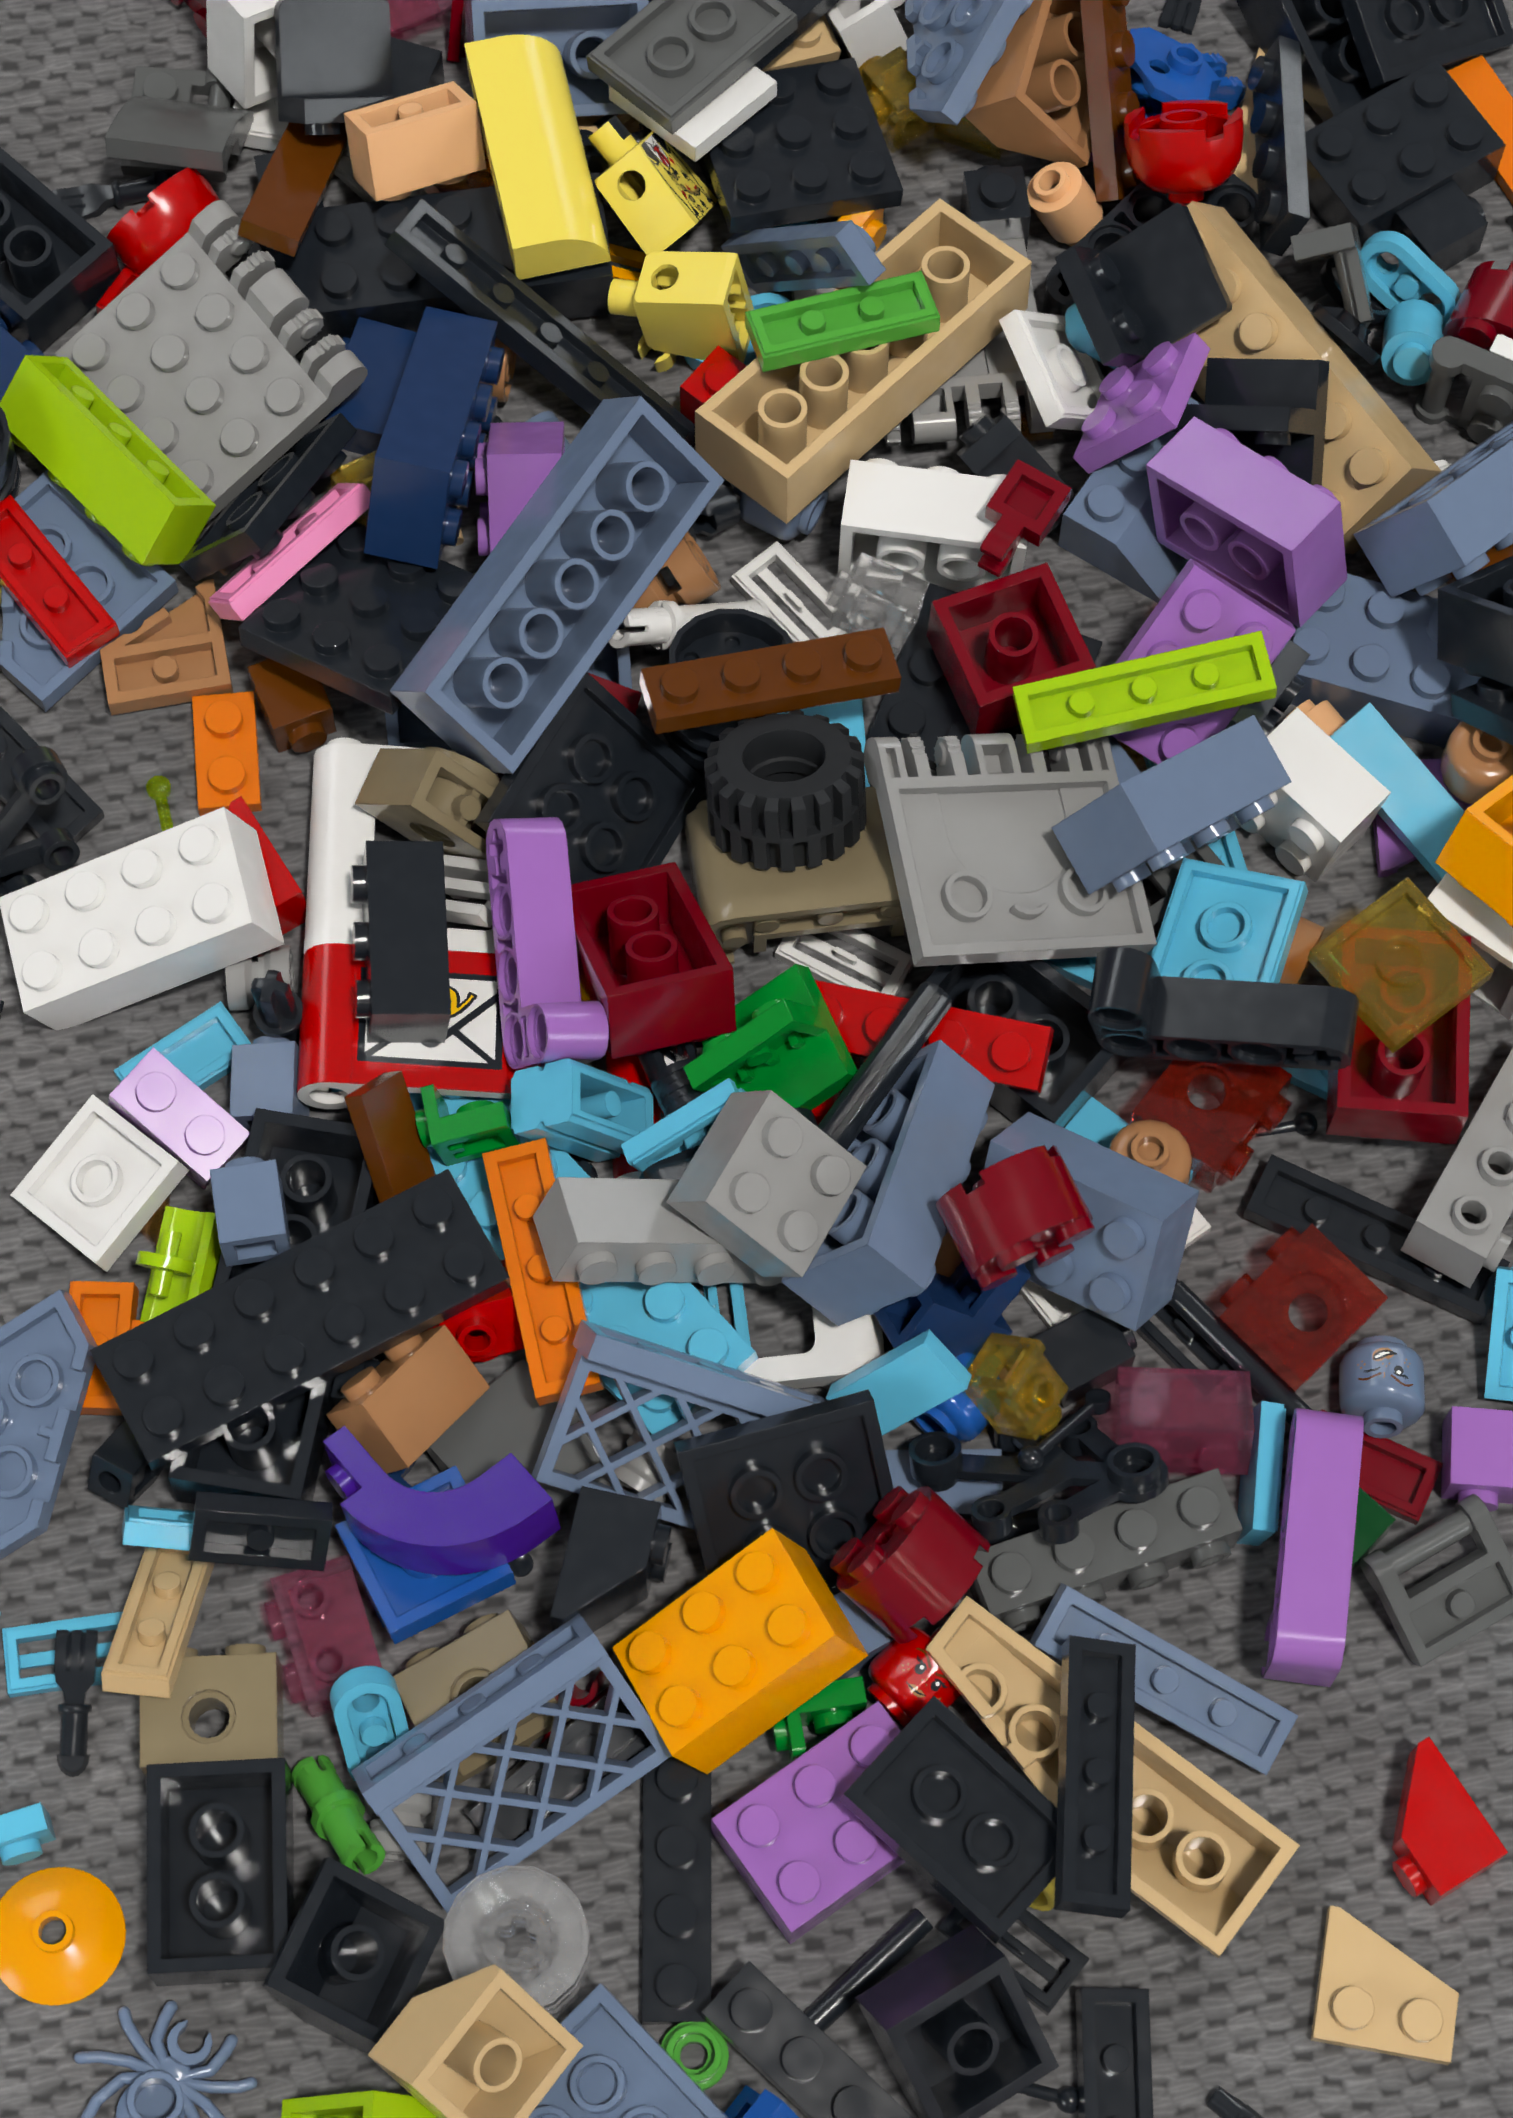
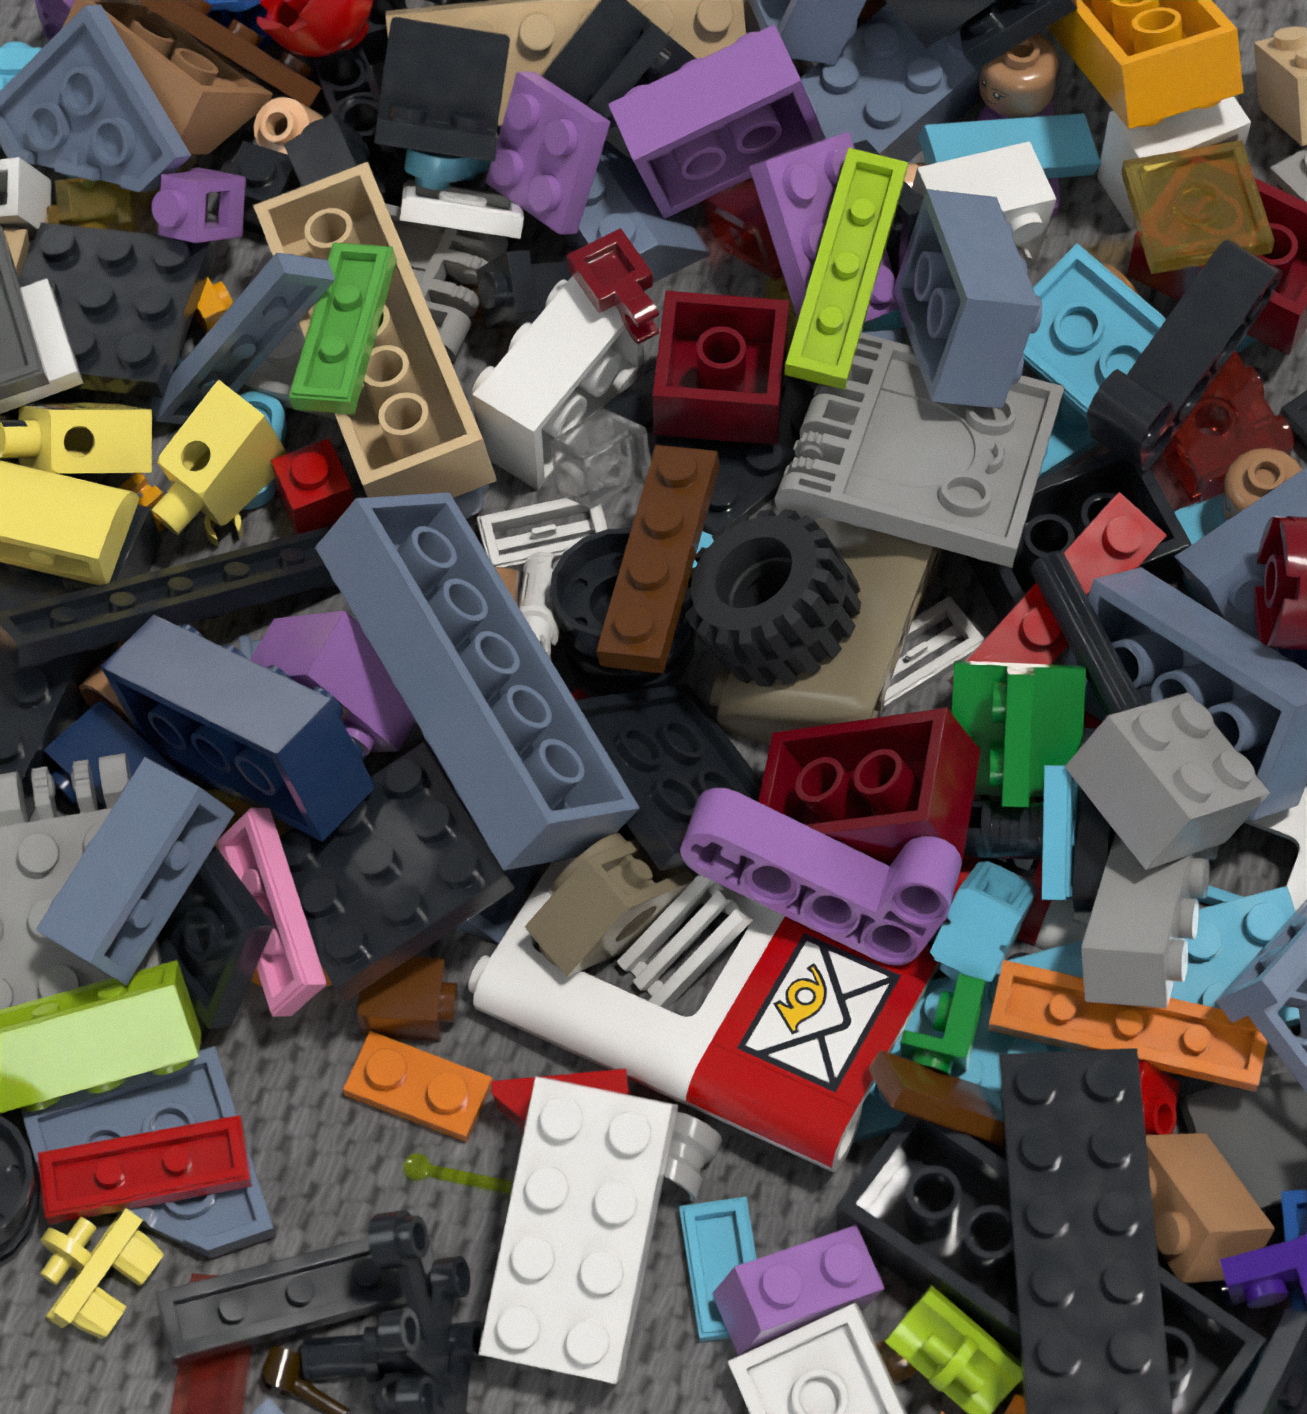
camera: 60 degrees left, 5 degrees down
(168, 658) = (289, 1089): medium nougat wing -> none
(250, 1210) = (957, 1247): sand blue brick -> none
(255, 424) = (135, 870): none -> sand blue brick
(265, 1078) = (796, 1194): sand blue brick -> none
(276, 1007) = (736, 1148): black axle -> none
(402, 942) = (741, 992): black brick -> none
(928, 161) = (183, 205): none -> medium lavender brick
(1039, 234) = (328, 149): none -> black brick

